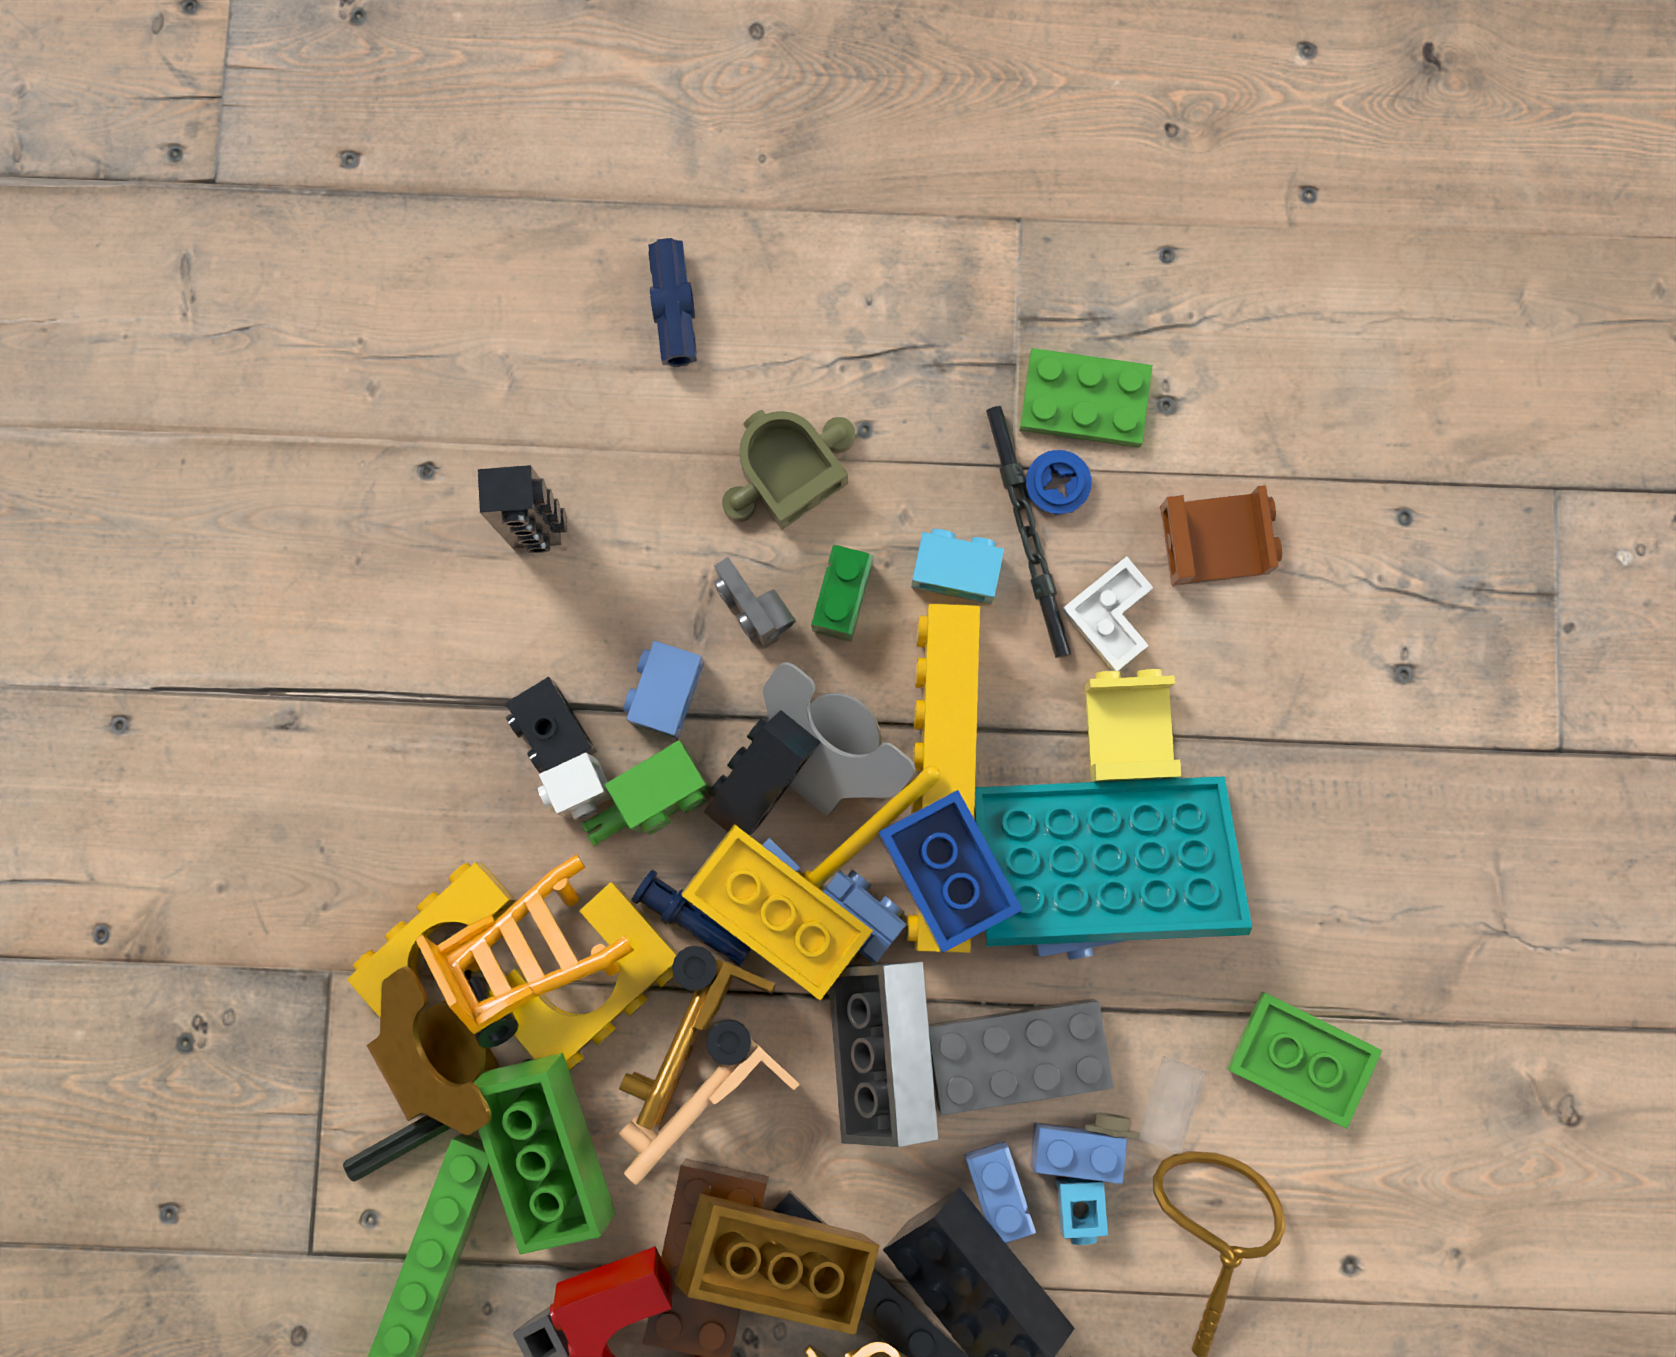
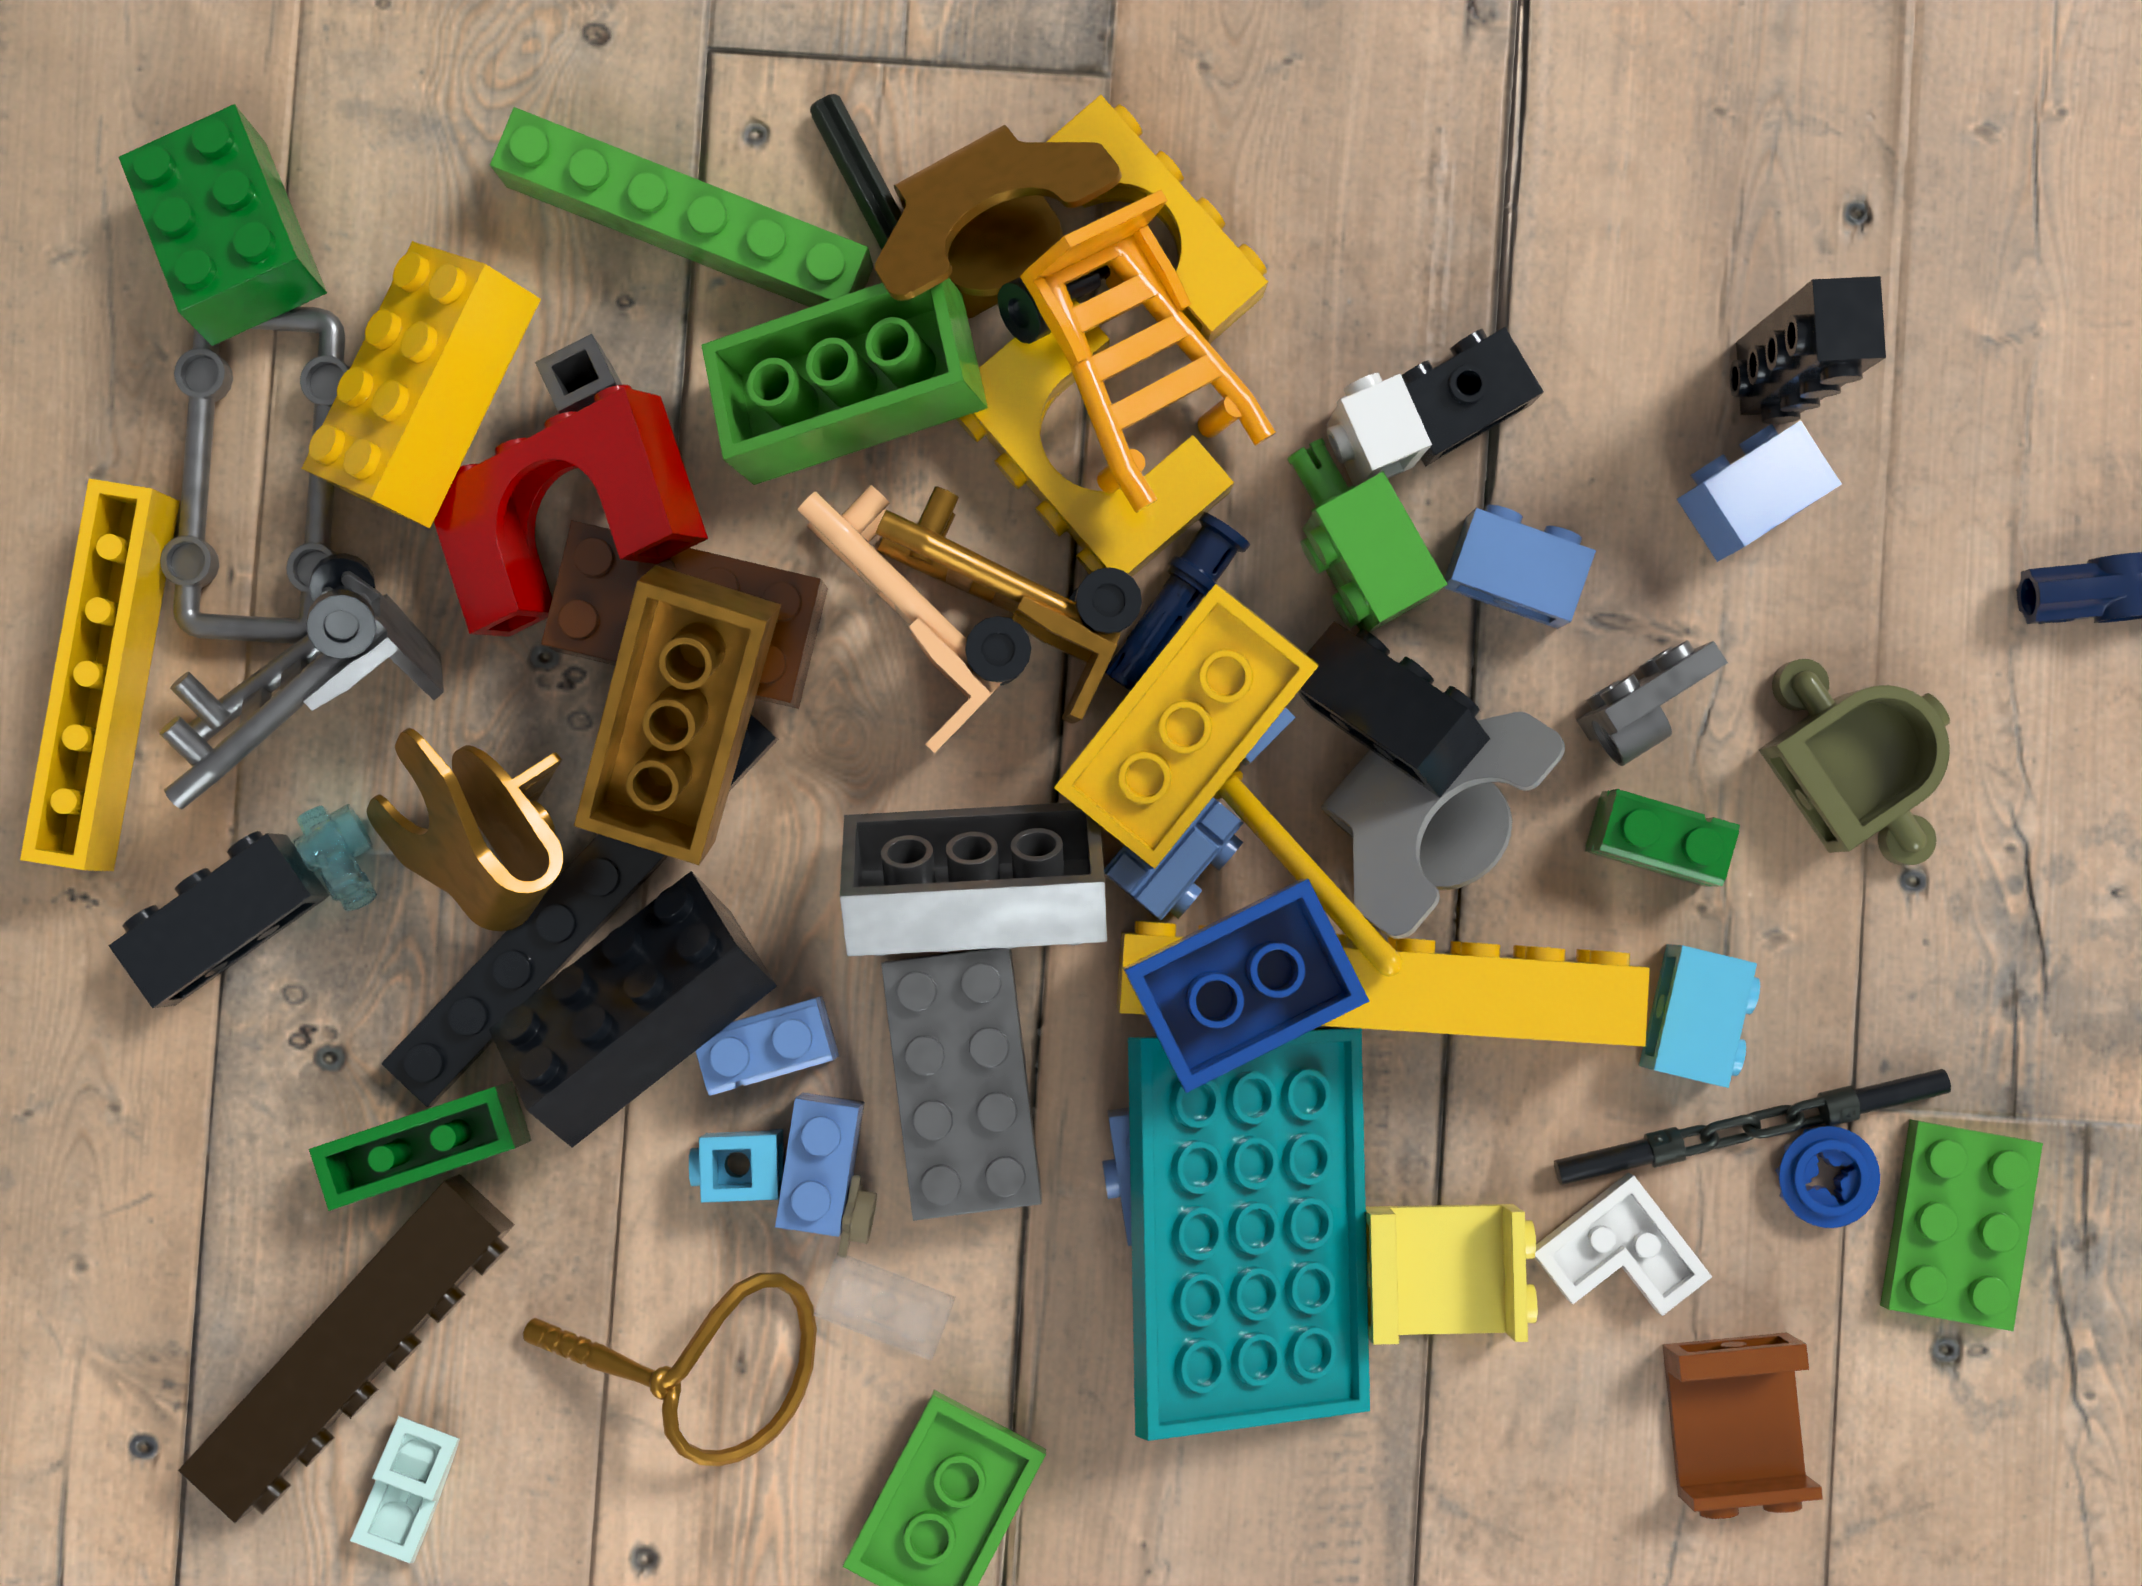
camera: 80 degrees right, 5 degrees up
(613, 535) = (1757, 491): none -> brick

